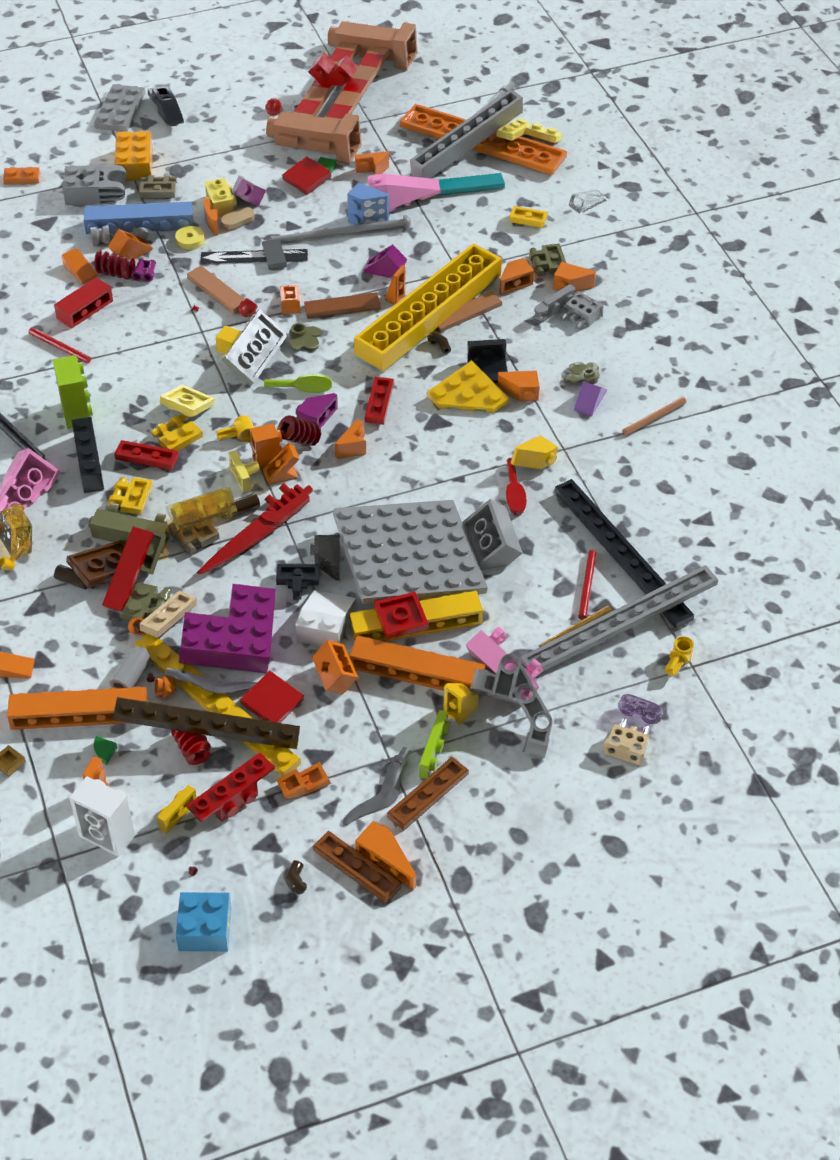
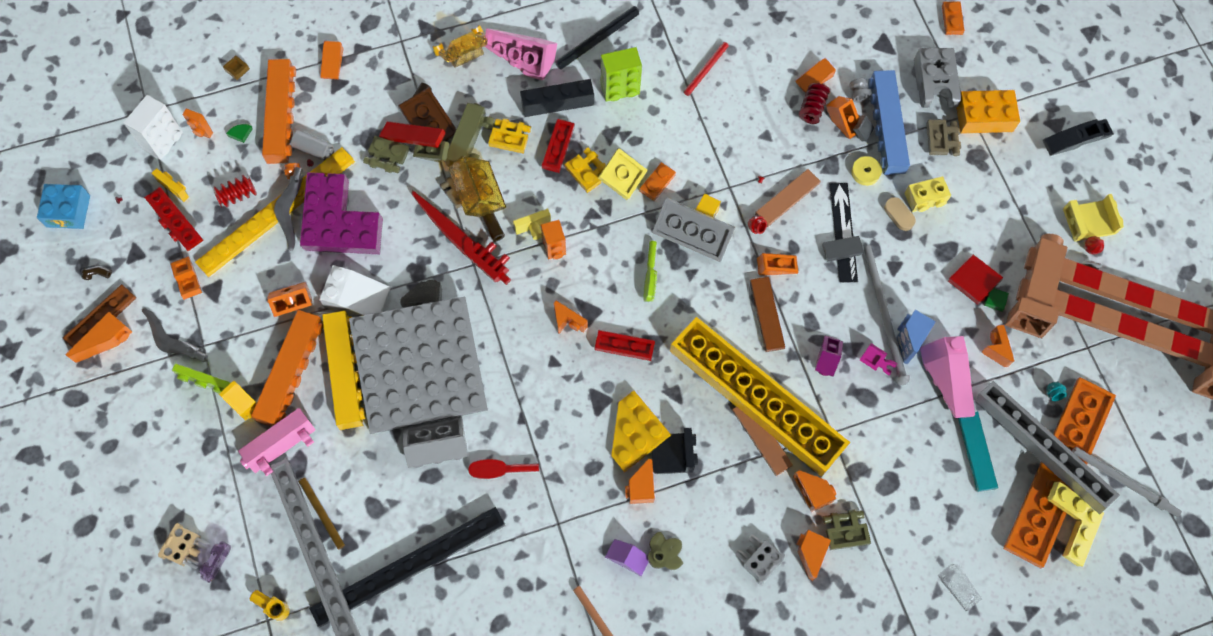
camera: 90 degrees right, 20 degrees up
(83, 302) = (760, 82): red brick -> none
(119, 108) = (1075, 96): light grey plate -> none
(131, 628) = (357, 146): orange hinge -> none
(141, 273) = (807, 132): magenta piece -> none
(168, 614) = (365, 169): tan plate -> none
(193, 380) = (657, 181): none -> orange plate
(206, 723) = (234, 199): dark brown plate -> none
(211, 216) = (891, 188): orange slope -> none
(240, 429) = (587, 221): yellow axle -> none
(247, 104) = (1093, 218): none -> light yellow panel
(248, 191) = (936, 219): magenta slope -> none
(272, 698) = (271, 253): red tile -> none
(282, 465) = (536, 258): orange slope -> none
(297, 577) = (402, 271): black hinge -> none
(299, 430) = (574, 267): dark red piece -> none
(304, 337) = (716, 280): olive plate -> none
(318, 408) = (607, 286): magenta slope -> none
(330, 73) = (1147, 298): red brick -> none
(387, 235) = (875, 358): none -> dark pink plate
(397, 287) = (786, 365): orange slope -> none
(401, 615) = (333, 352): red tile -> none
(411, 136) = (1056, 391): none -> teal plate
(427, 793) = (160, 374): dark orange tile -> none
(443, 341) = (714, 409): dark brown arm -> none
(507, 687) = (230, 444): light grey connector -> none
(528, 216) = (920, 513): yellow plate -> none
(535, 453) = (539, 490): yellow slope -> none
(553, 303) = (769, 528): light grey hinge -> none
(586, 590) = (374, 529): red bar -> none

